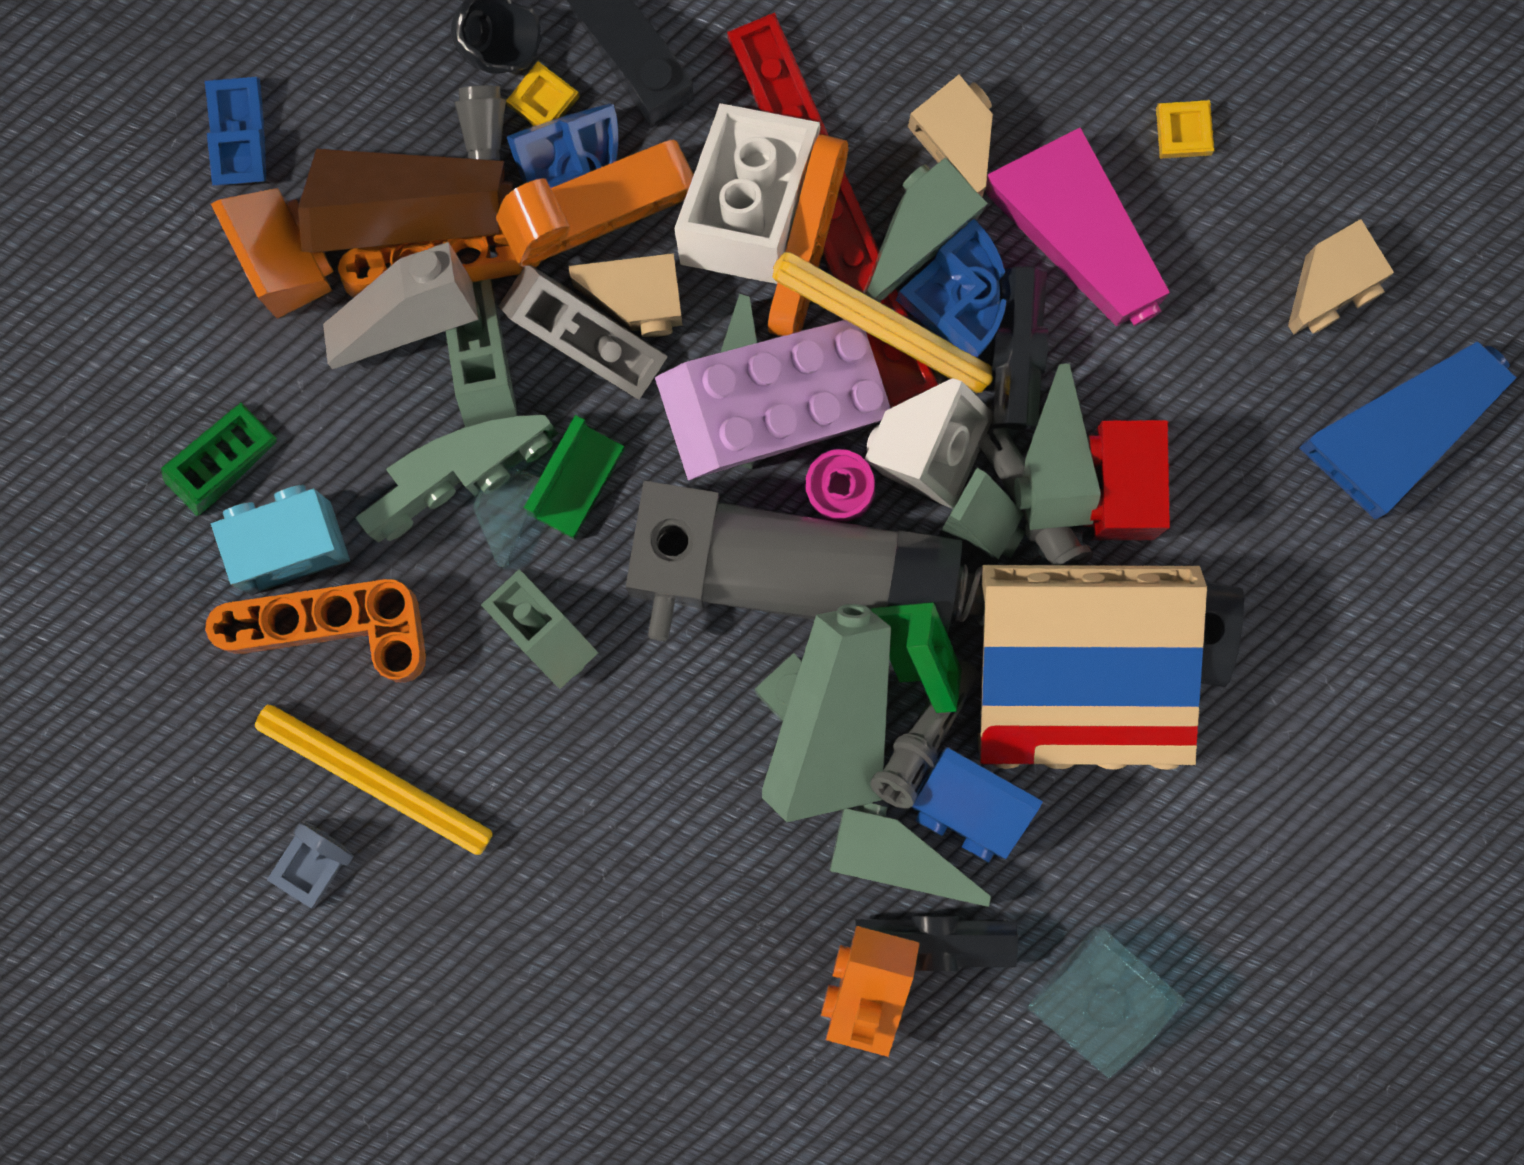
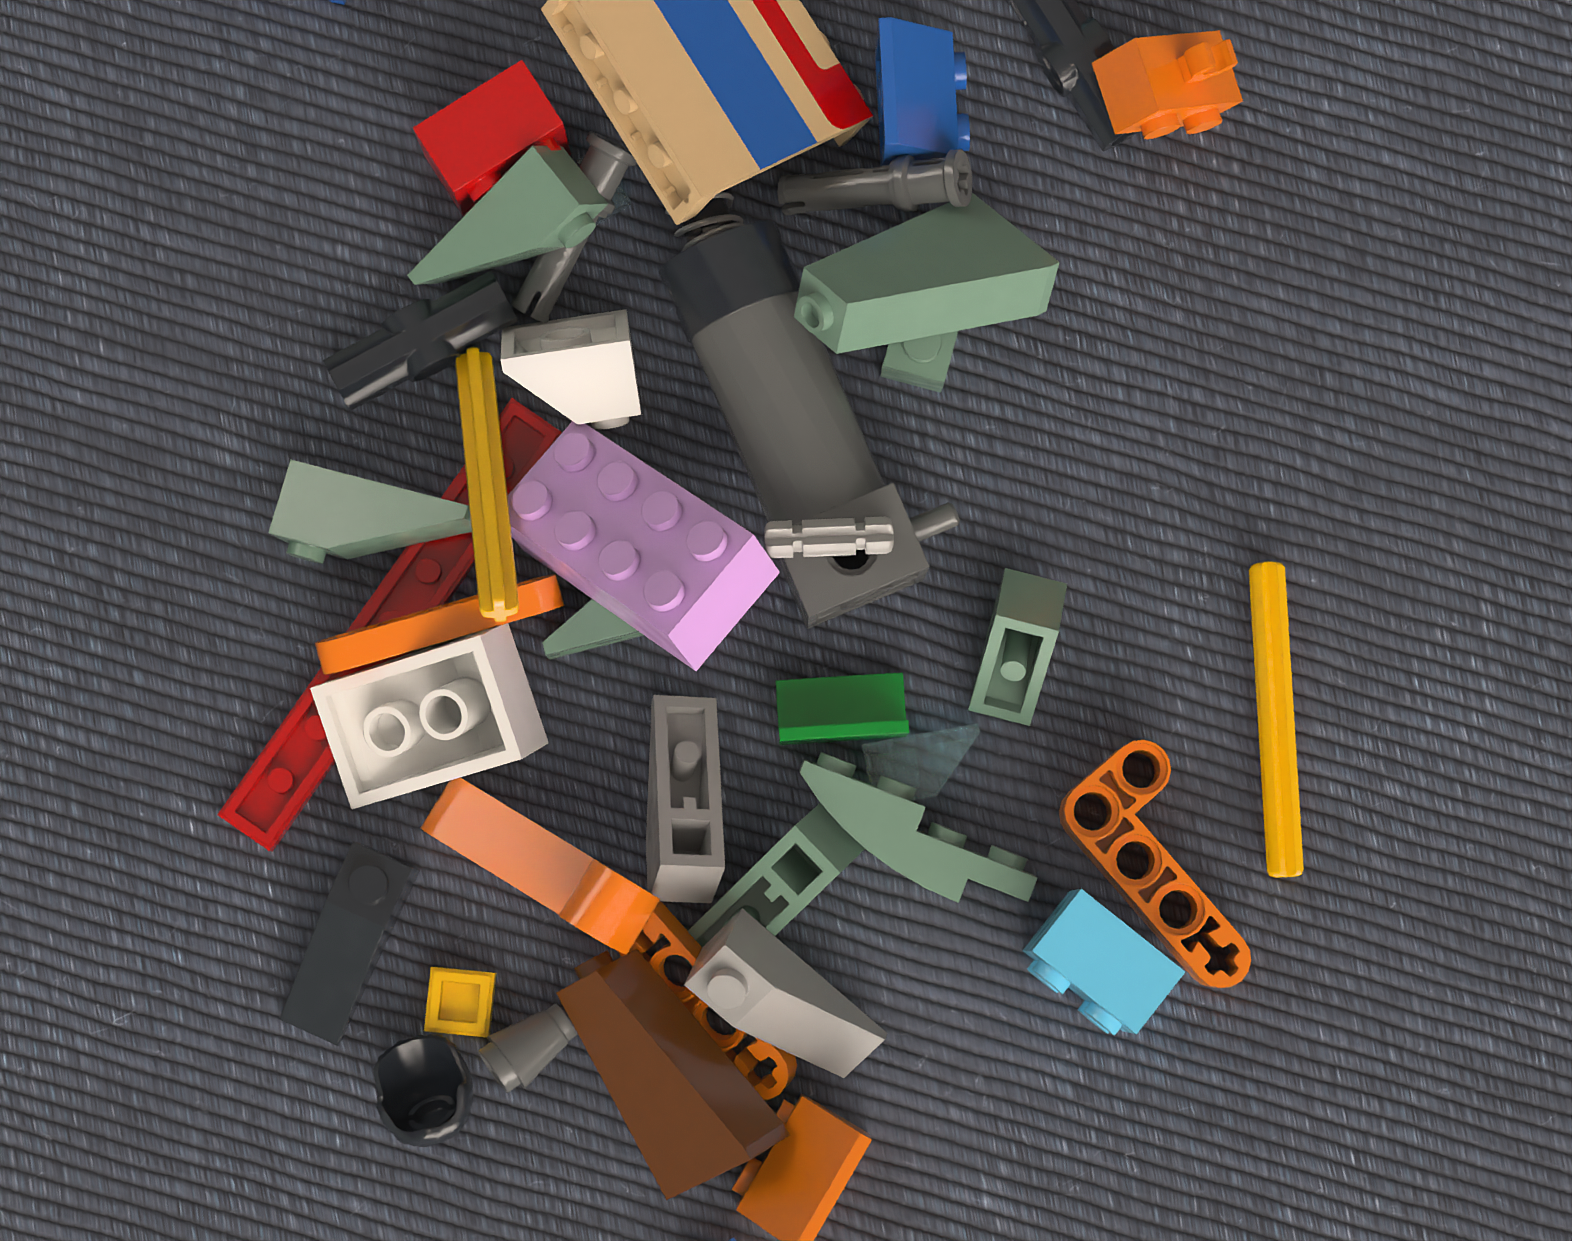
camera: 125 degrees left, 0 degrees up
(205, 444) = (1107, 1106): green slope -> none
(309, 864) = (1401, 729): sand blue tile -> none
(566, 146) = (505, 937): blue brick -> none
(634, 292) = (608, 767): tan slope -> none
(689, 526) = (829, 537): none -> light grey axle
(840, 485) = (679, 428): dark pink wheel -> none
(891, 854) = (1019, 158): sand green slope -> none
(923, 652) = (797, 232): green panel -> none
(957, 127) = (229, 540): tan slope -> none
(960, 291) = (401, 432): blue brick -> none
(985, 520) = (625, 264): sand green slope -> none
(1081, 226) = (250, 356): dark pink slope -> none
(1185, 129) = (80, 315): yellow tile -> none
(1336, 273) = (142, 67): tan slope -> none

